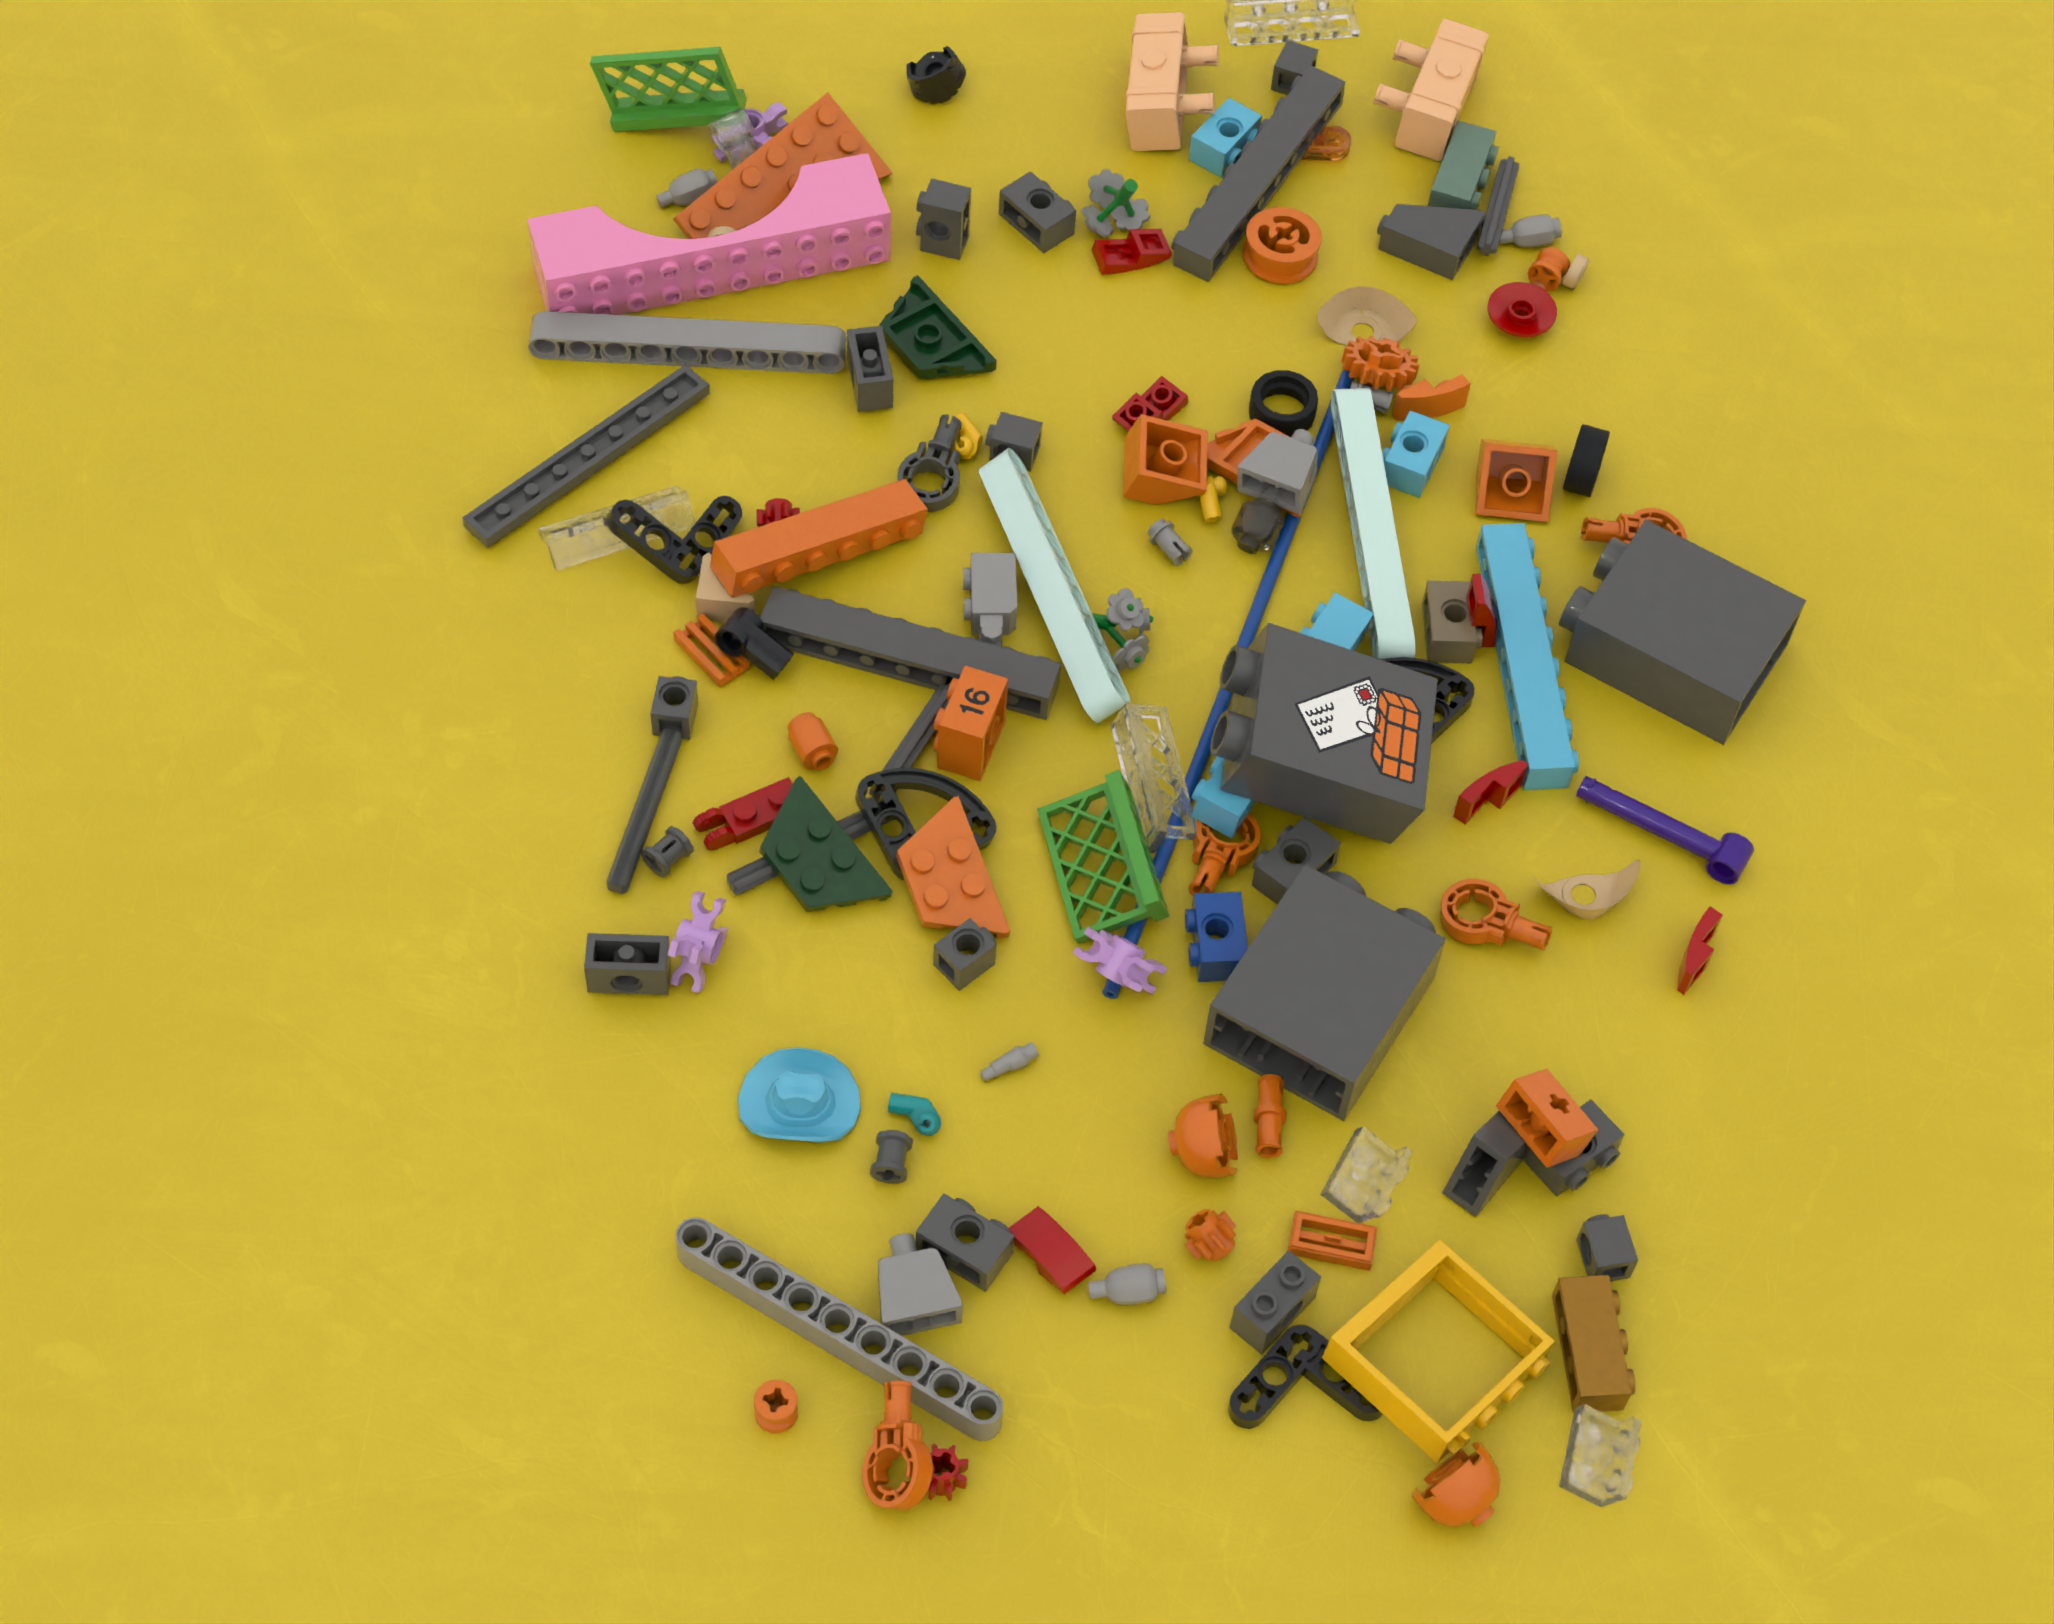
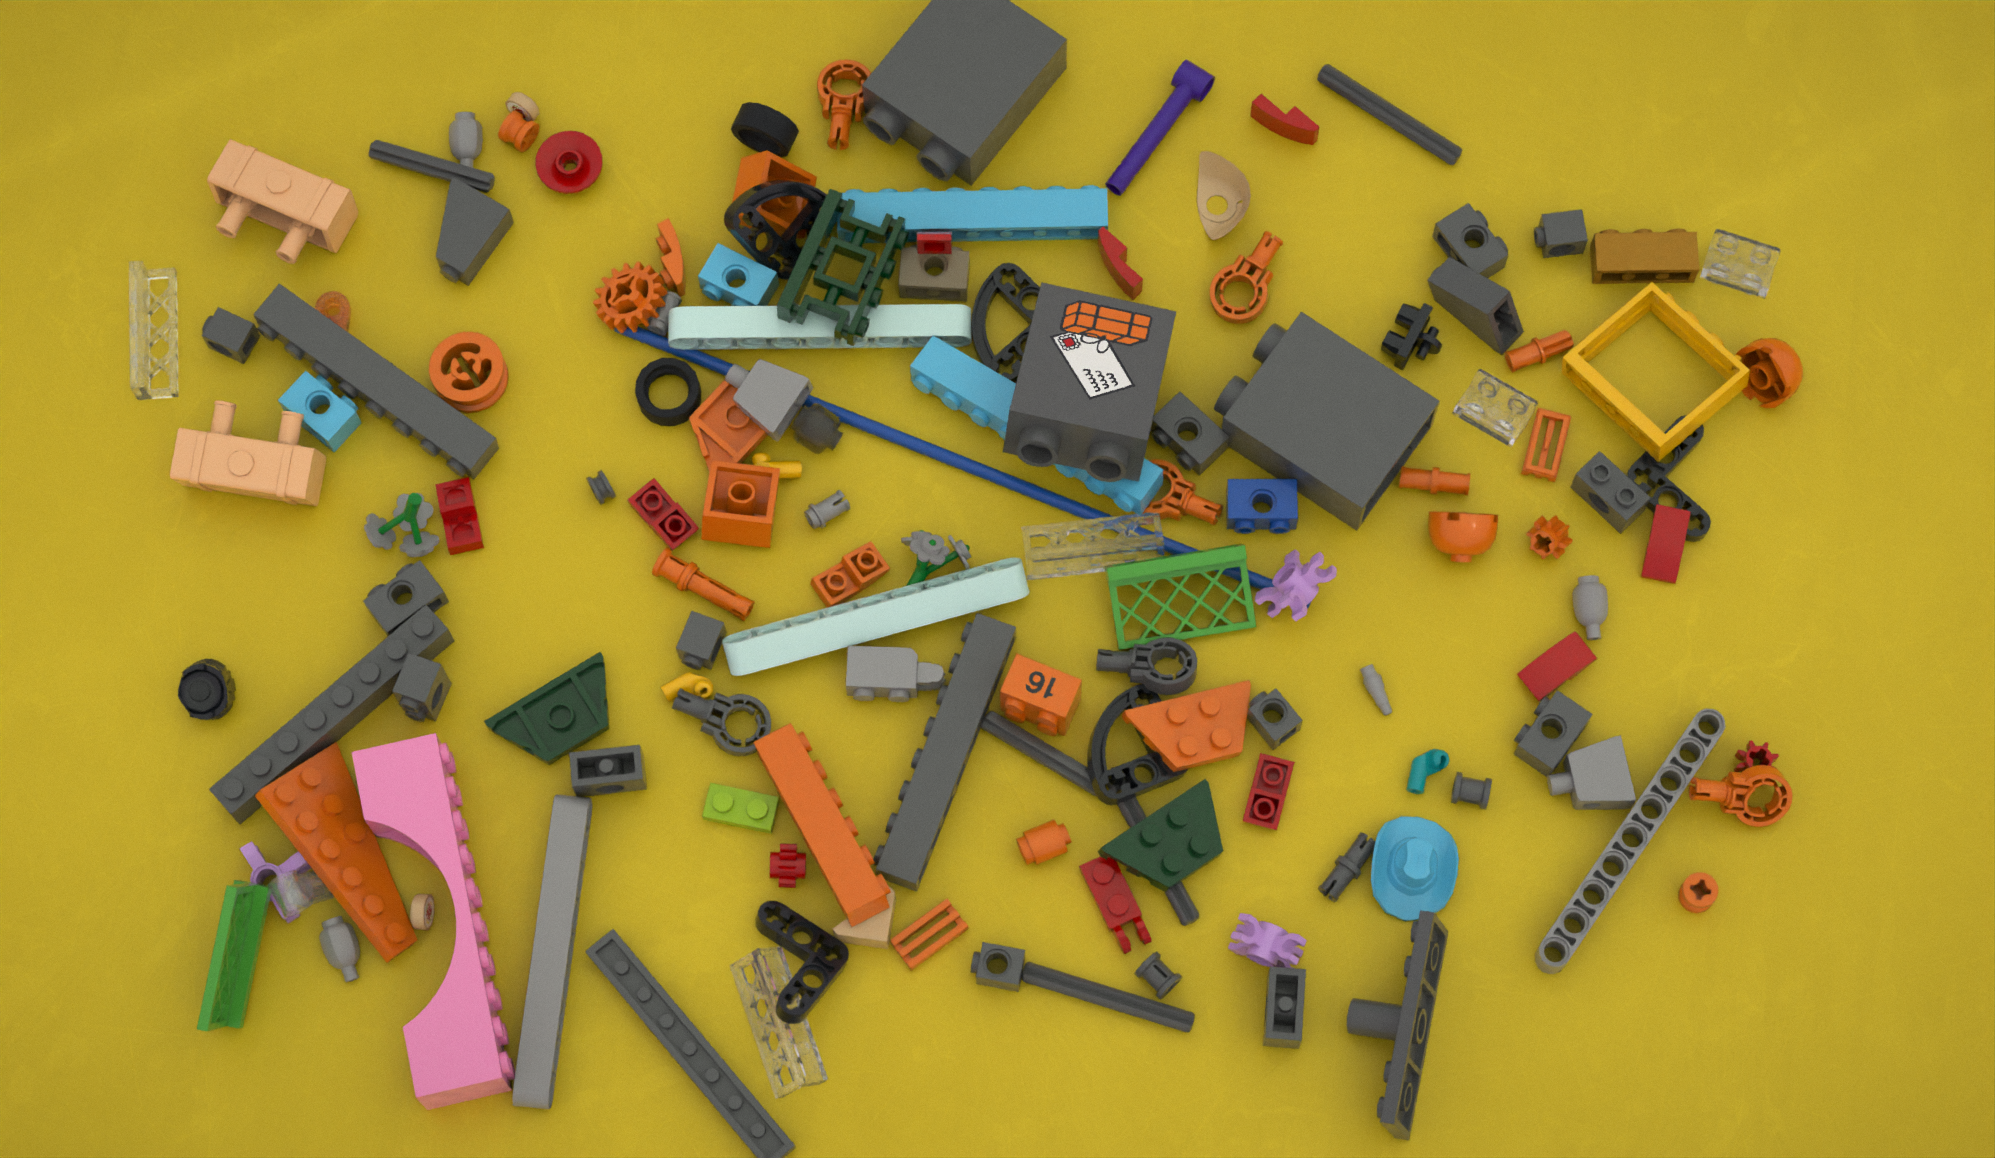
camera: 80 degrees left, 15 degrees up
(606, 1085) = (1405, 1024): none -> dark grey plate
(745, 636) = (933, 895): black piece -> none
(793, 1032) = (1347, 867): none -> dark grey pin
(842, 478) = (740, 808): none -> lime plate
(882, 958) = (1268, 791): none -> red slope
(915, 160) = (331, 713): none -> dark grey brick
(1019, 824) = (1141, 660): none -> dark grey pin
(1083, 430) = (690, 578): none -> orange pin
(1098, 567) = (850, 576): none -> orange slope
(1172, 354) = (601, 487): none -> dark grey bush
(1212, 1367) = (1665, 544): none -> red slope
(1381, 312) = (567, 286): tan piece -> none
(1441, 496) = (817, 258): none -> dark green fence
(1446, 1090) = (1415, 321): none -> black hips
(1450, 1226) = (1538, 350): none -> orange axle
(1459, 489) = (779, 246): none -> black beam
(1464, 167) = (389, 192): sand green brick -> none
(1546, 1117) = (1467, 256): orange brick -> none
(1729, 1065) = (1389, 114): none -> dark grey axle

